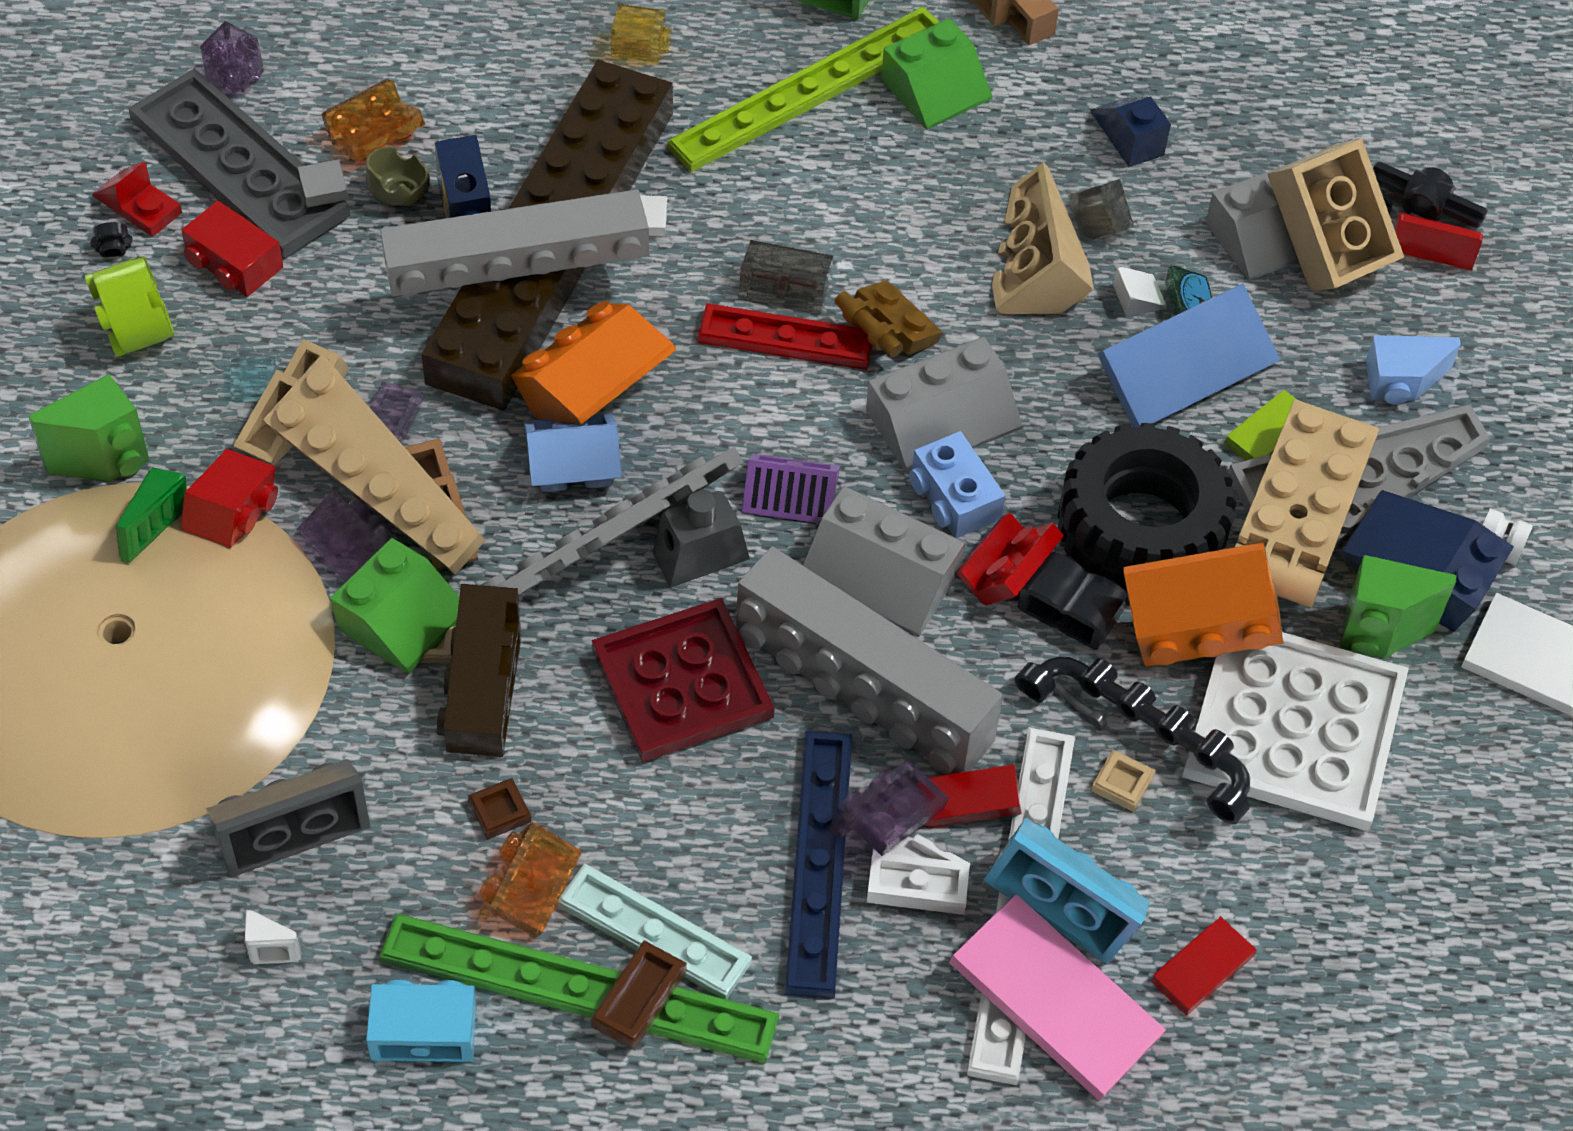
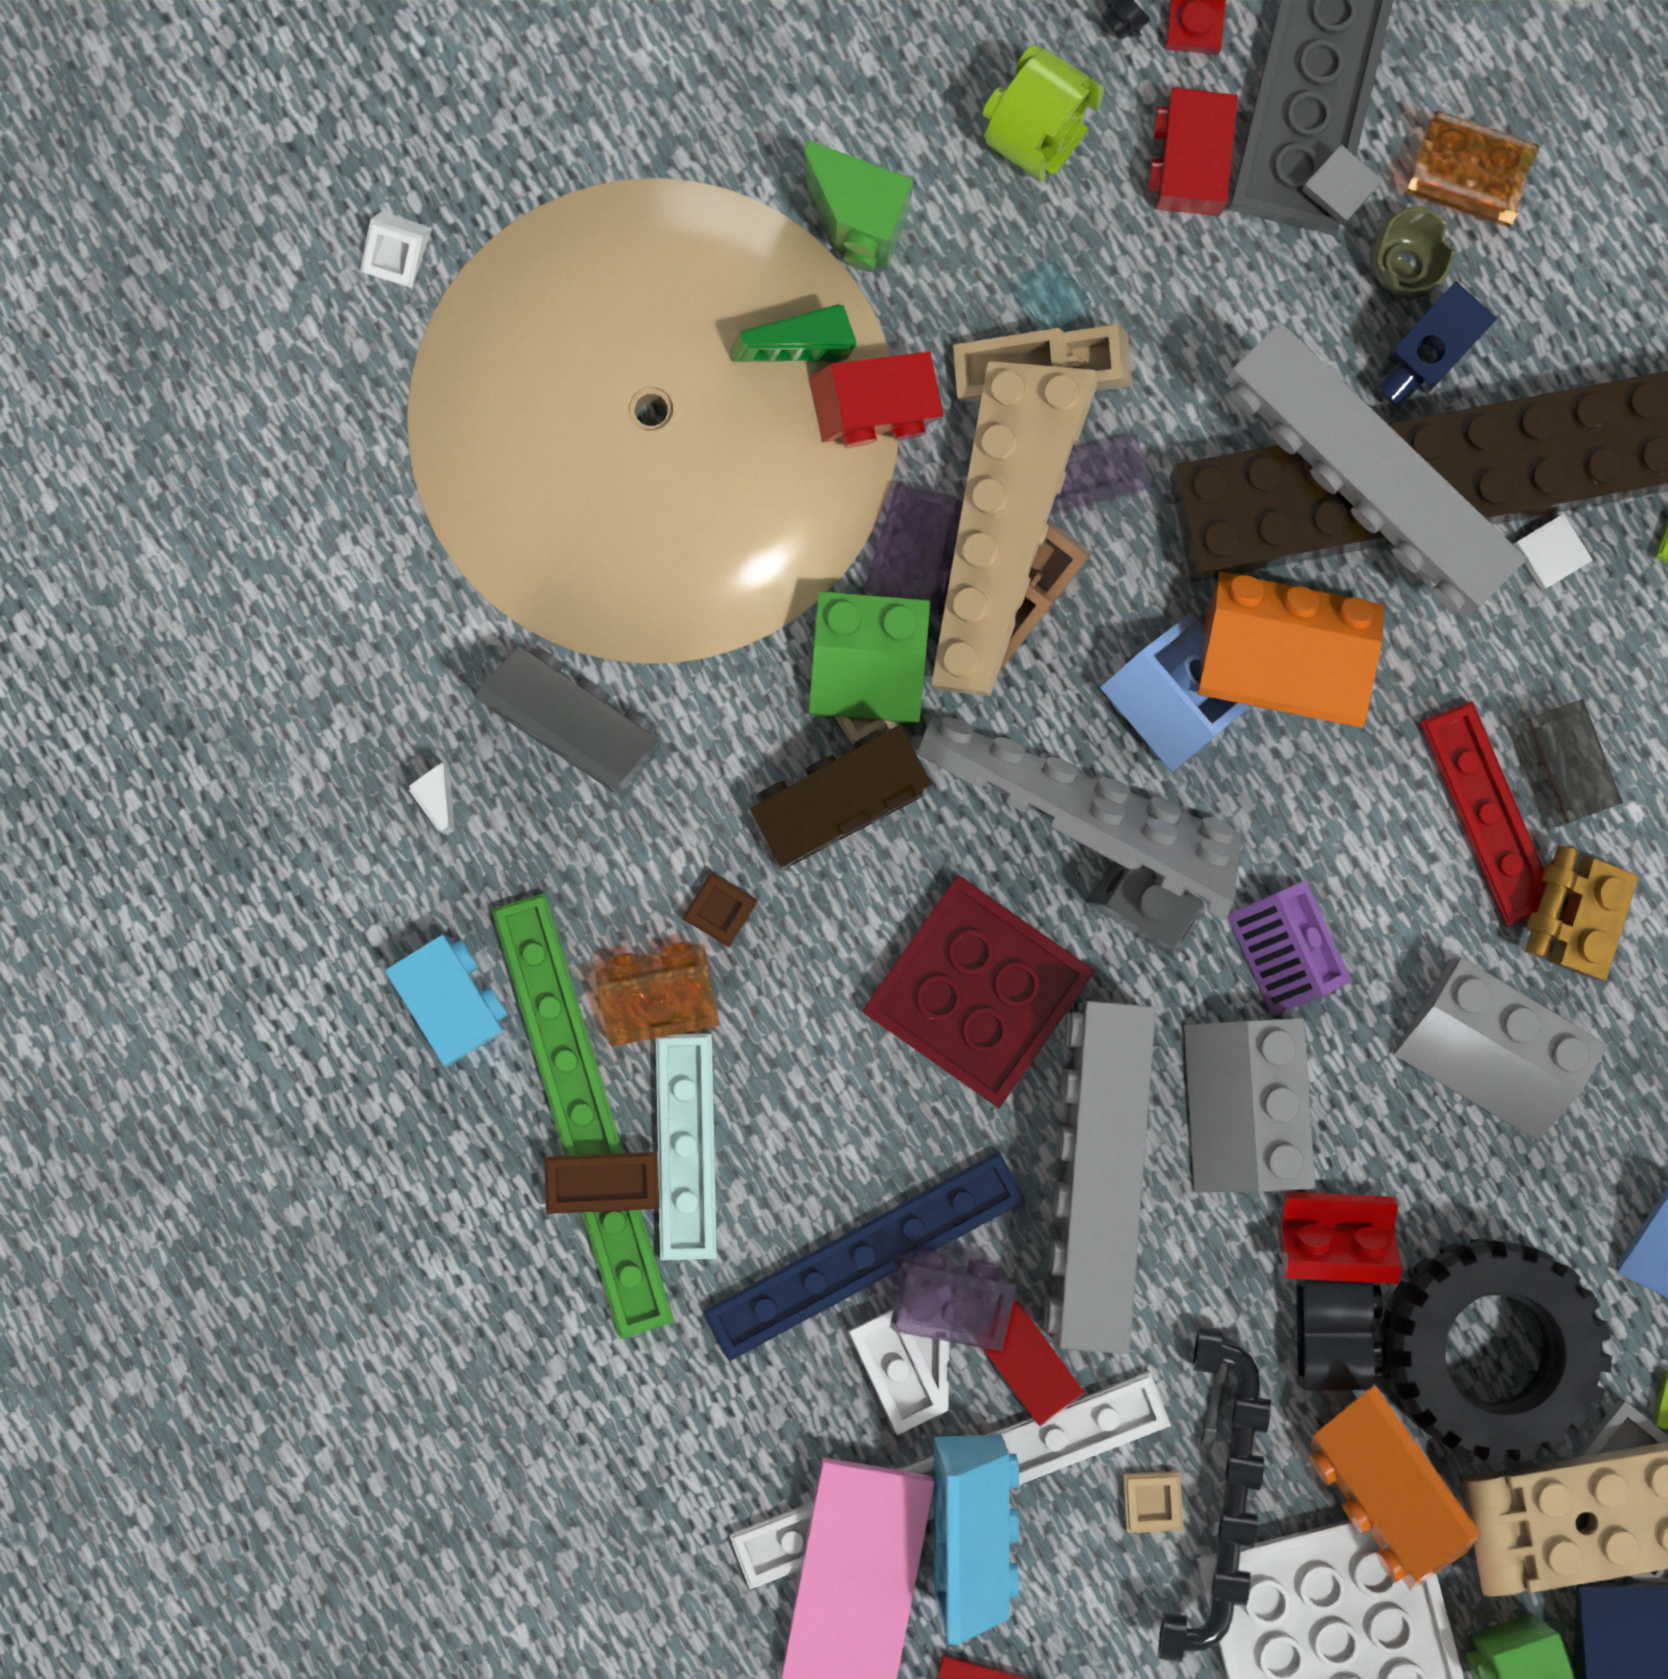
camera: 55 degrees right, 30 degrees up
(956, 485) = (1401, 1123): light blue brick -> none

